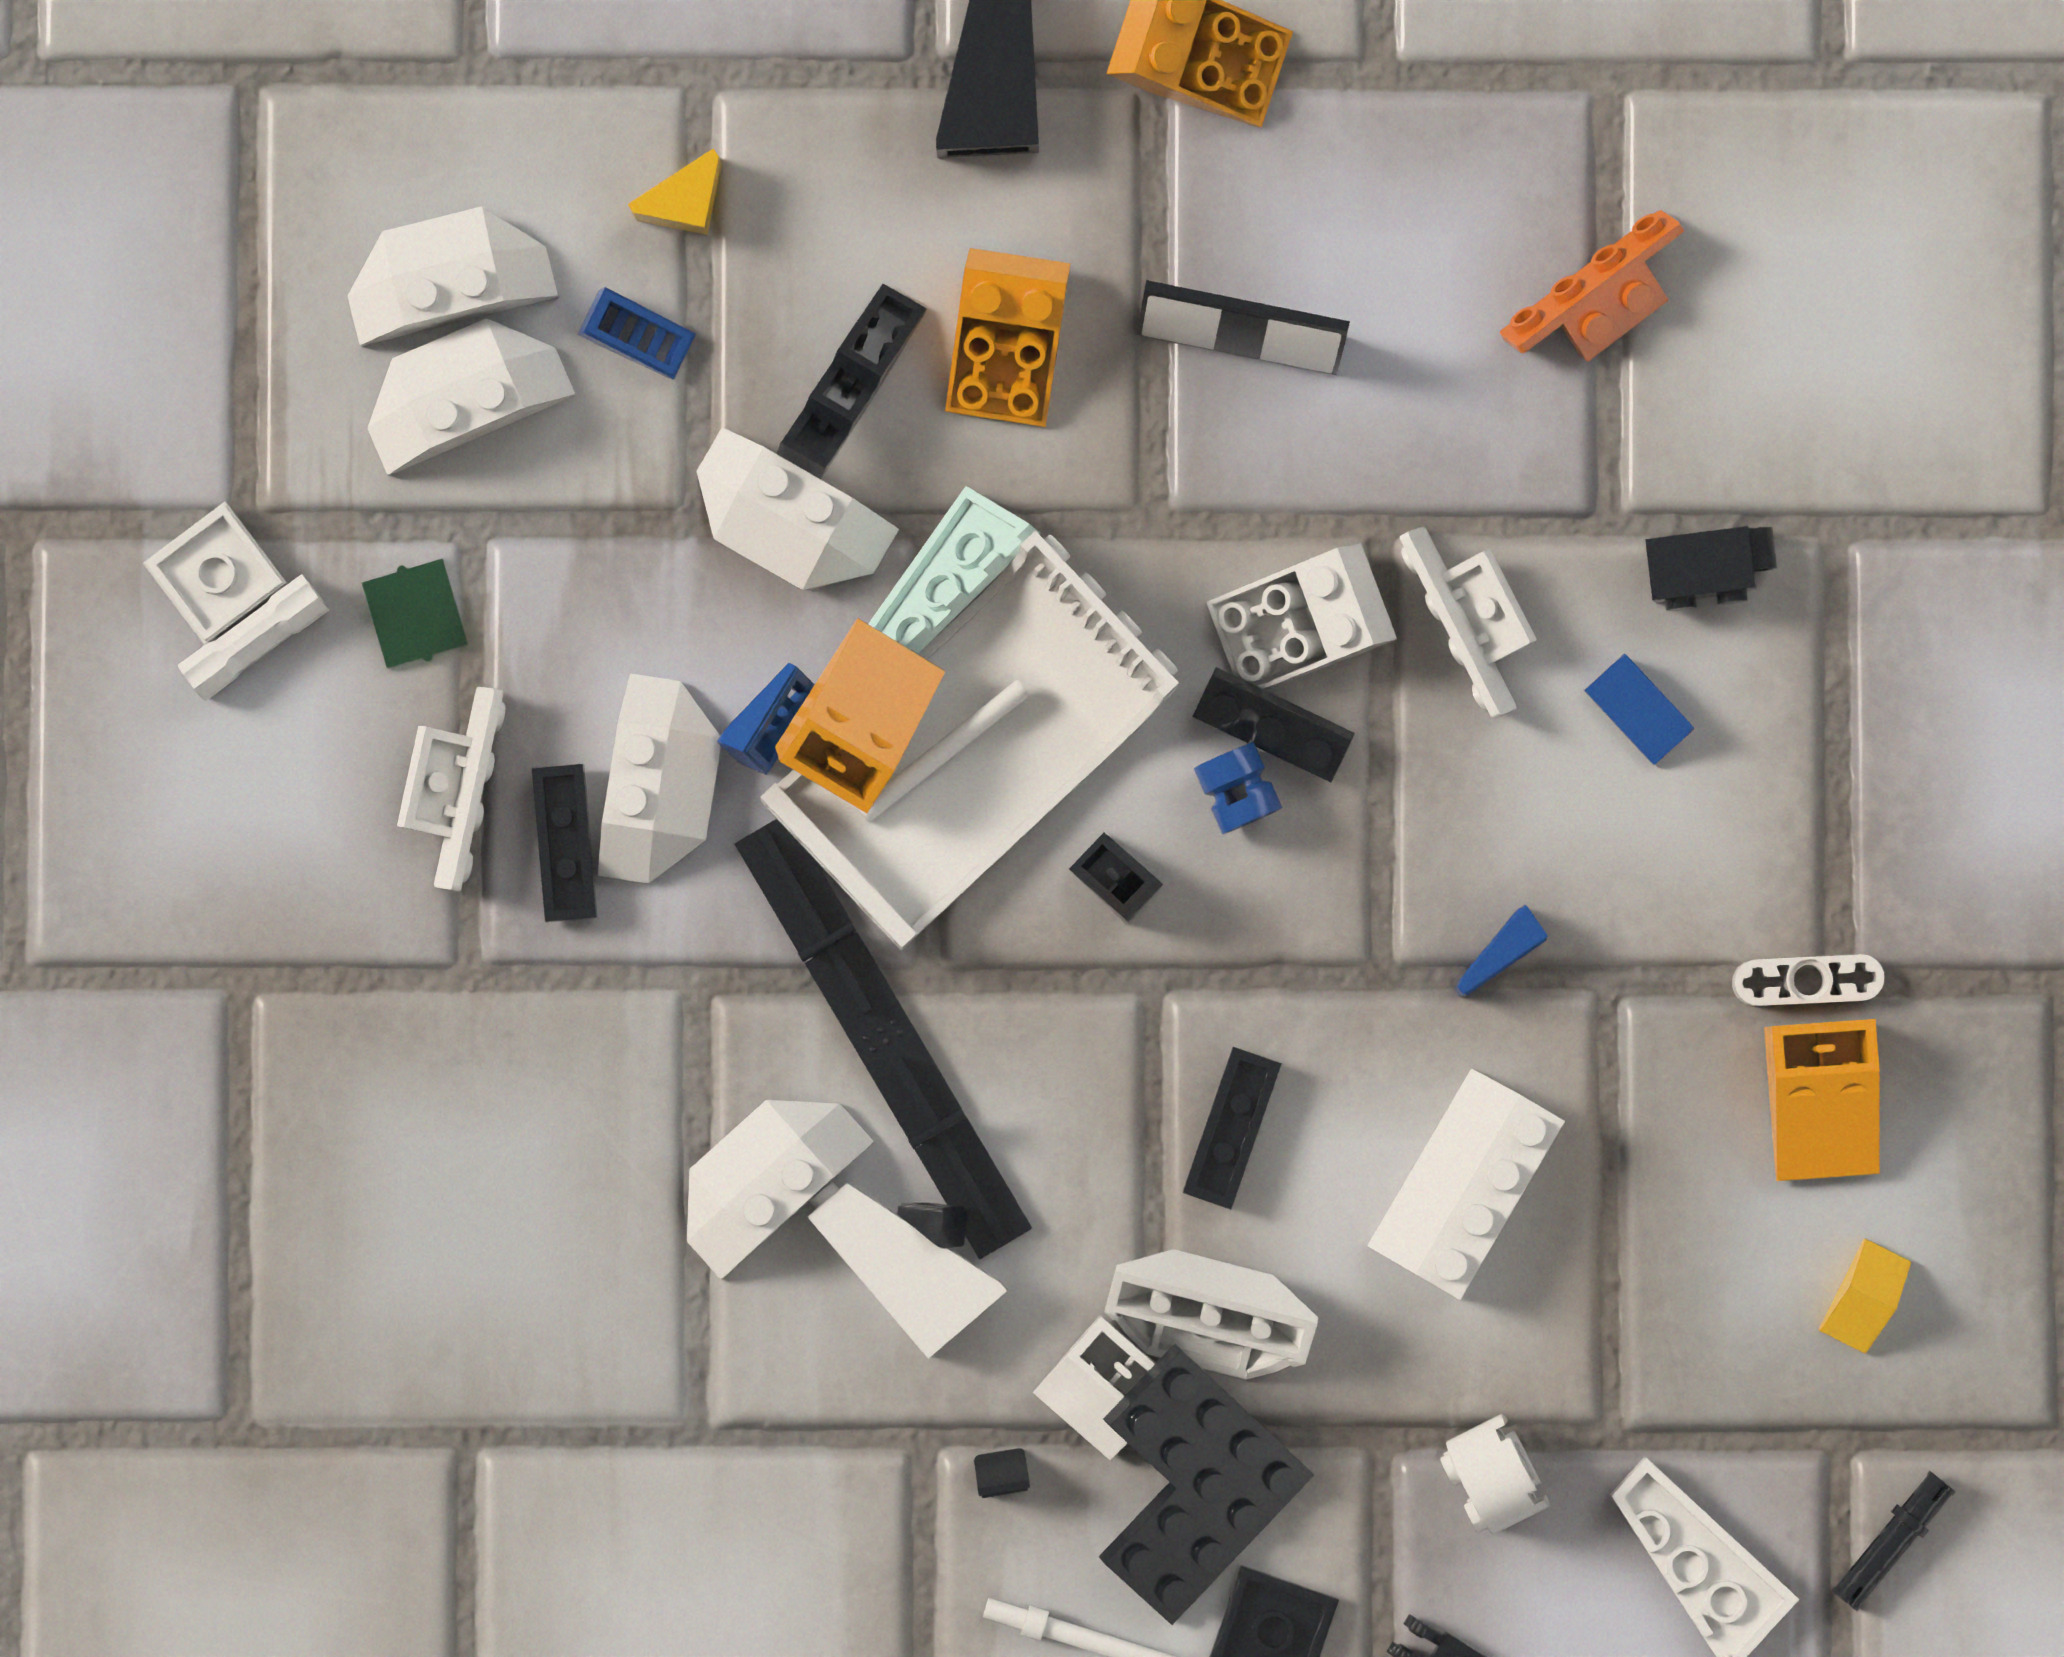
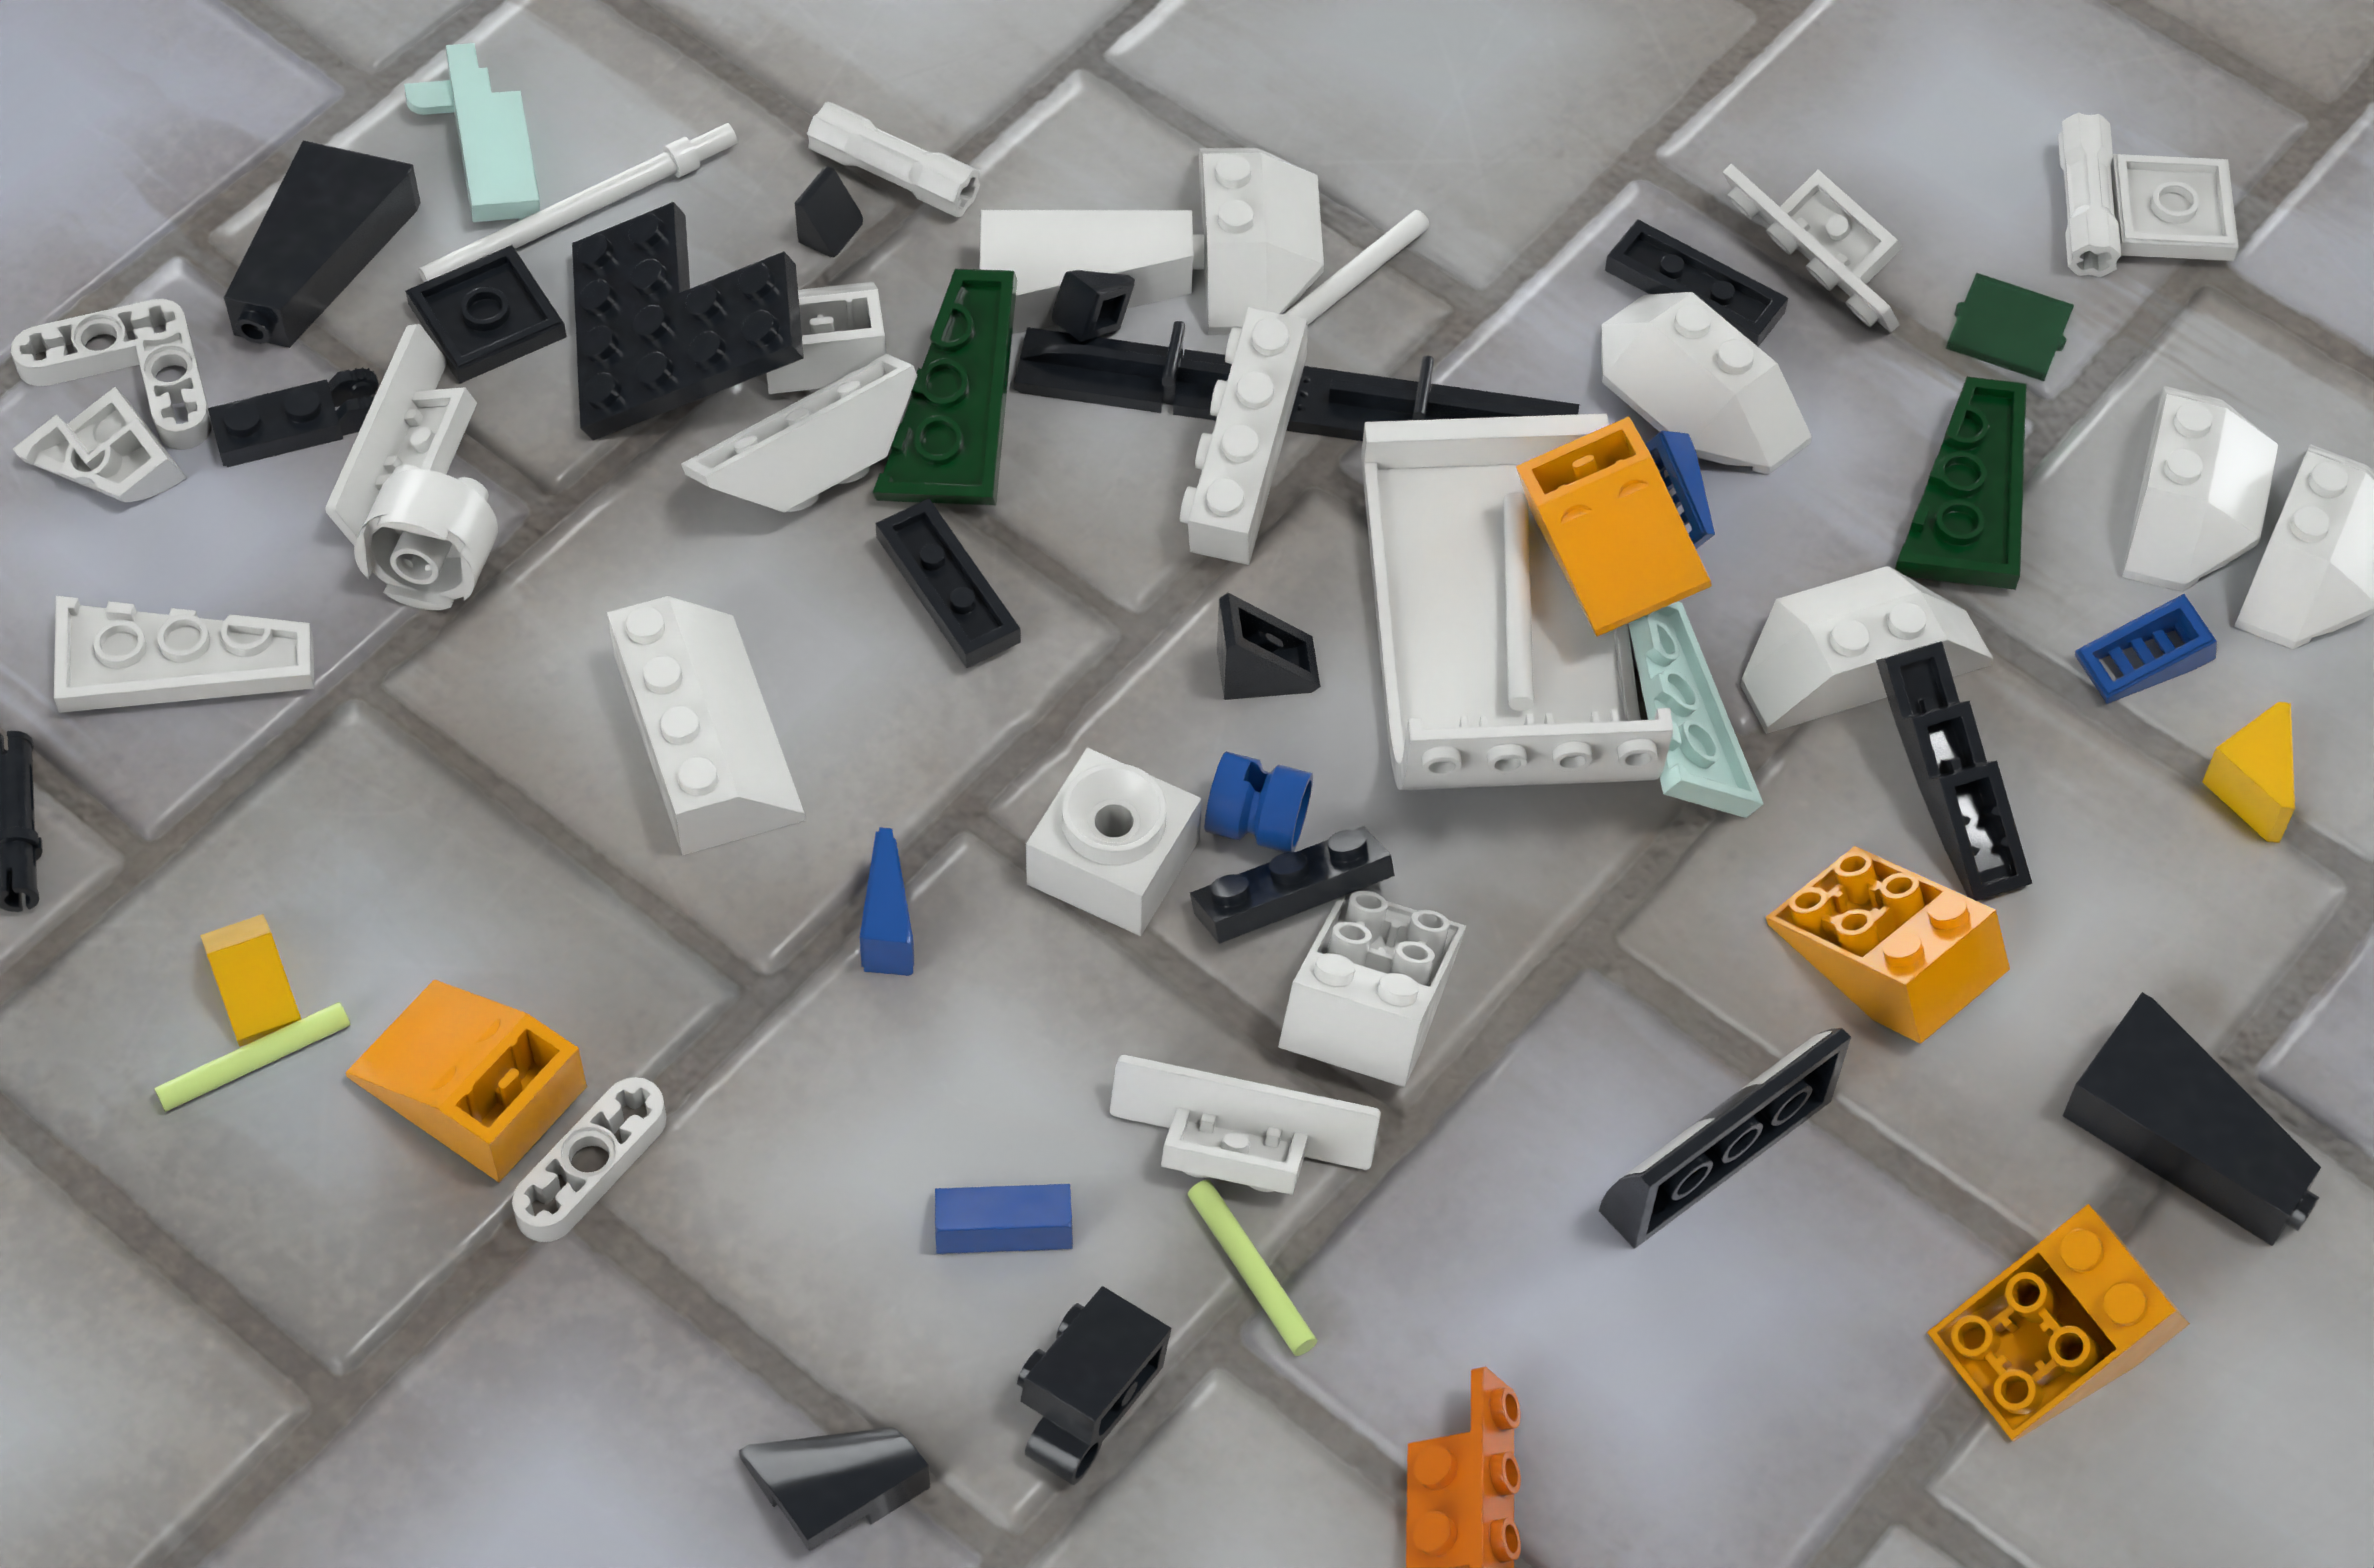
camera: 125 degrees right, 30 degrees down
(601, 528) = (1973, 498): none -> dark green wing
(759, 1084) = (1360, 267): none -> white bar
(916, 1473) = (928, 175): none -> white axle
(963, 1022) = (1247, 435): none -> white brick
(1110, 1225) = (958, 402): none -> dark green wing
(1366, 828) = (1113, 841): none -> white piece
(1422, 1574) = (404, 425): none -> white bracket
(1549, 539) = (1252, 1267): none -> yellowish green bar
(1880, 660) = (837, 1478): none -> black slope
(1913, 1242) = (252, 1056): none -> yellowish green bar

